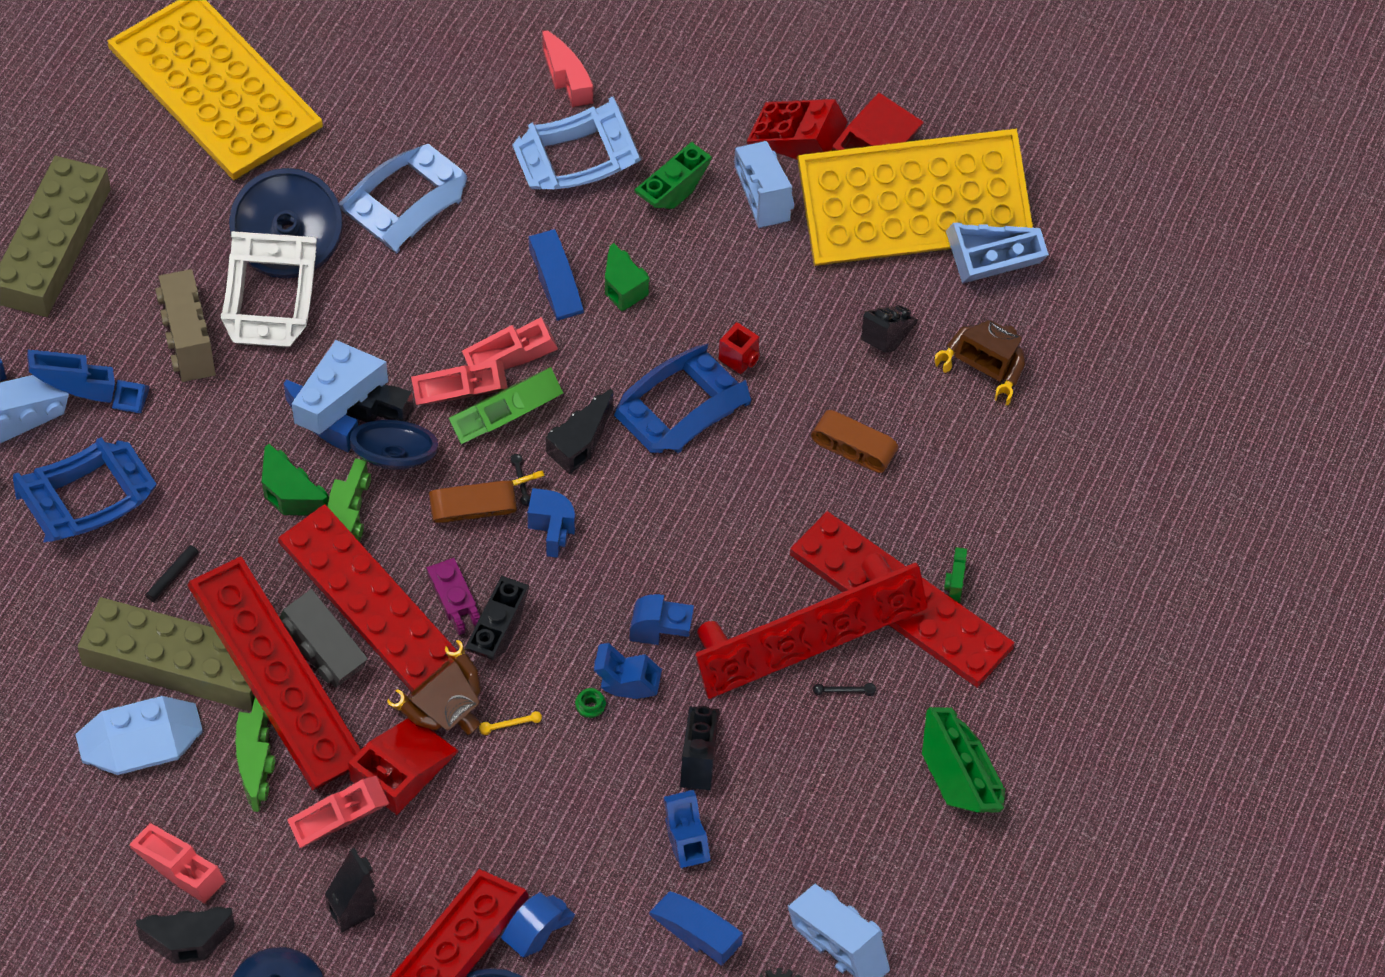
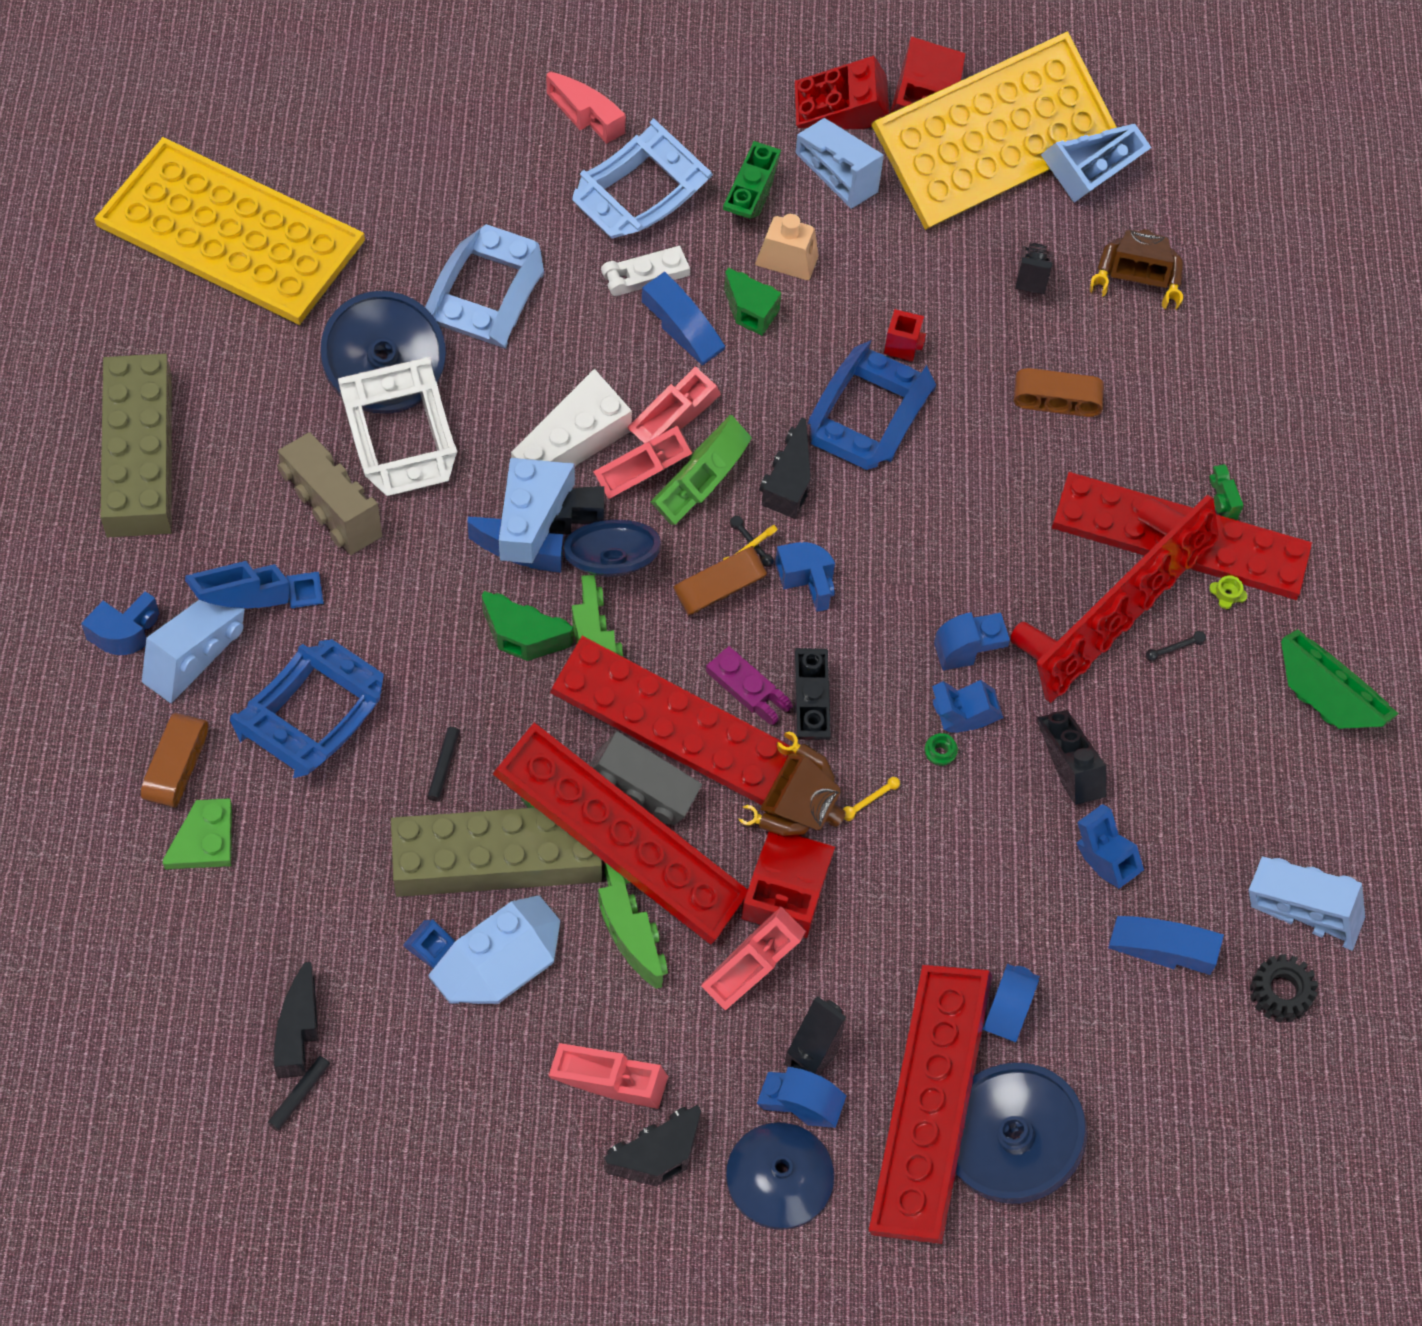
camera: 25 degrees left, 5 degrees up
(87, 708) = (429, 942): none -> blue slope
(324, 935) = (805, 1095): none -> blue brick
(416, 337) = (579, 425): none -> white wedge
(568, 225) = (644, 269): none -> white plate
(678, 243) = (789, 247): none -> light nougat torso
(916, 651) = (1230, 584): none -> lime plate

